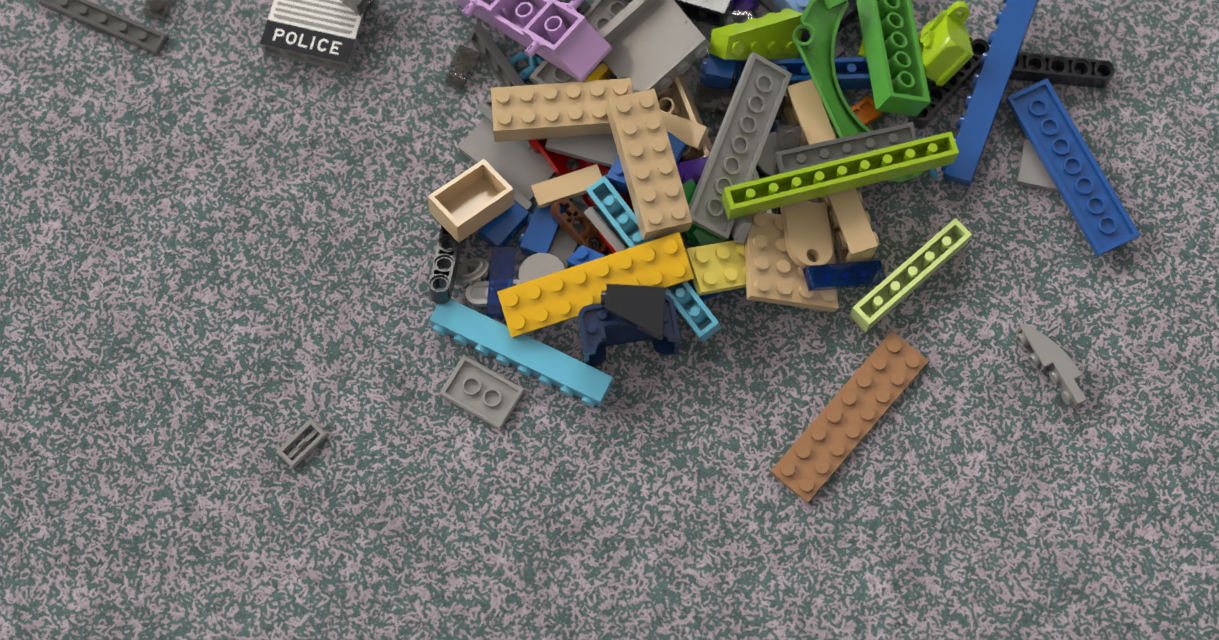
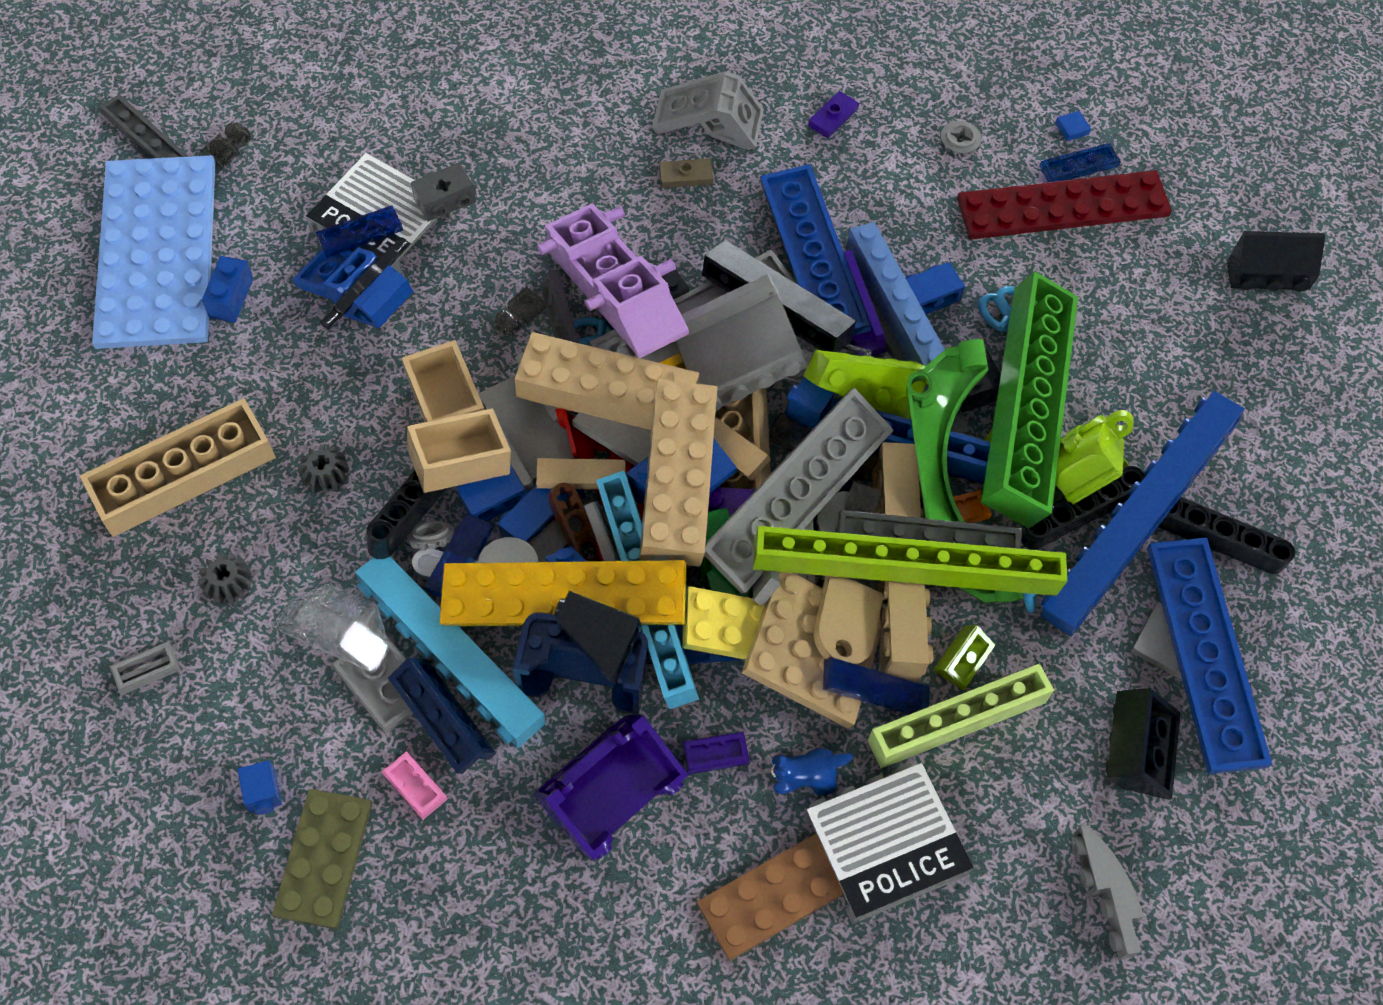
camera: 15 degrees right, 10 degrees down
(148, 112) = (154, 252): none -> light blue plate
(224, 126) = (227, 289): none -> blue brick
(256, 283) = (177, 467): none -> tan brick
(310, 43) = (359, 231): none -> clear blue tile
(325, 86) = (357, 284): none -> blue piece
(341, 357) = (230, 586): none -> dark grey gear
(360, 254) = (315, 476): none -> dark grey gear
(429, 500) = (259, 787): none -> blue brick
(431, 363) = (337, 625): none -> clear wedge
(432, 151) = (441, 382): none -> tan piece
(495, 533) = (322, 859): none -> olive plate
(536, 402) = (440, 714): none -> dark blue fence
(538, 459) = (414, 785): none -> bright pink plate
(678, 409) = (610, 783): none -> dark purple windscreen
(744, 362) = (715, 753): none -> dark purple plate
(818, 350) = (813, 770): none -> blue animal
(889, 381) = (888, 841): none -> panel
(898, 228) = (965, 656): none -> lime slope
(1045, 249) = (1143, 743): none -> black slope

